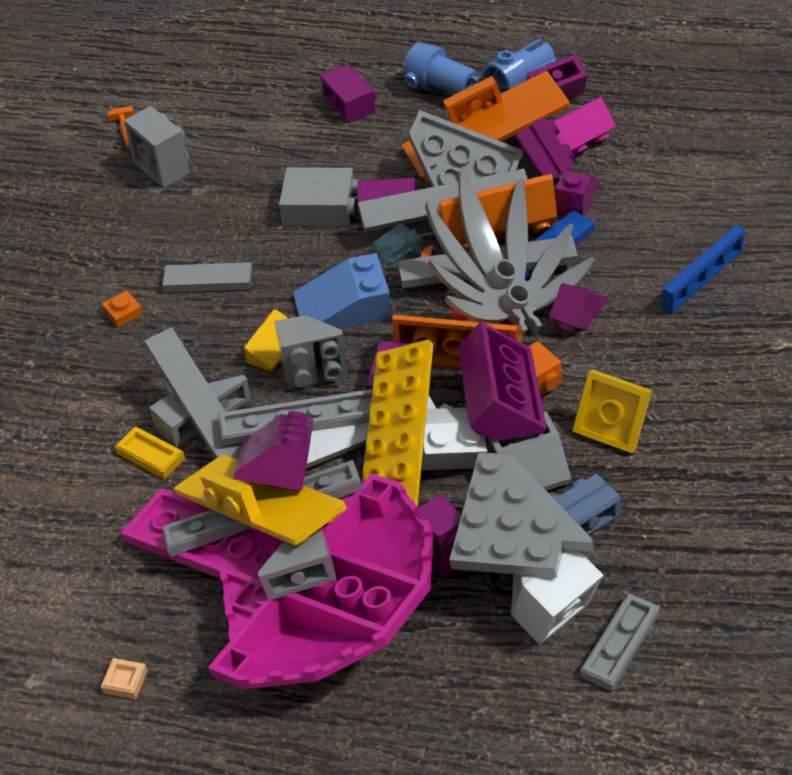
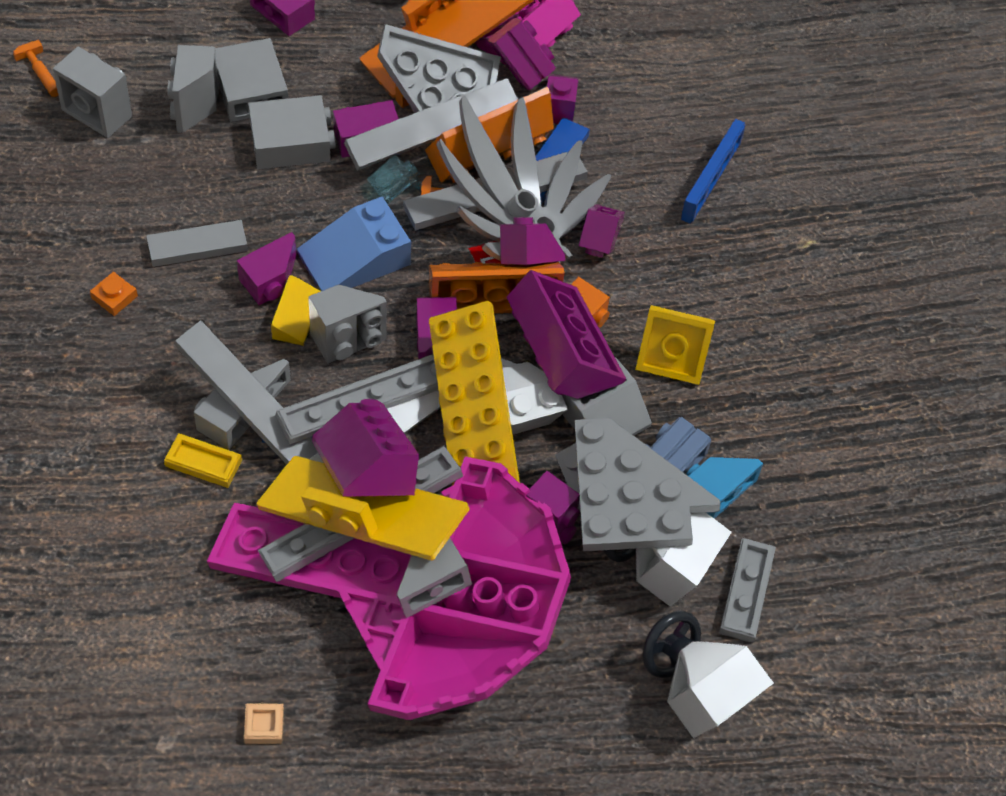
camera: 25 degrees left, 10 degrees up
(243, 150) = (193, 86): none -> light grey slope
(258, 300) = (268, 268): none -> magenta slope
(296, 145) = (247, 75): none -> light grey brick
(493, 303) = (528, 243): none -> magenta slope
(549, 706) = (708, 677): none -> white piece
(623, 540) = (726, 478): none -> dark azure slope

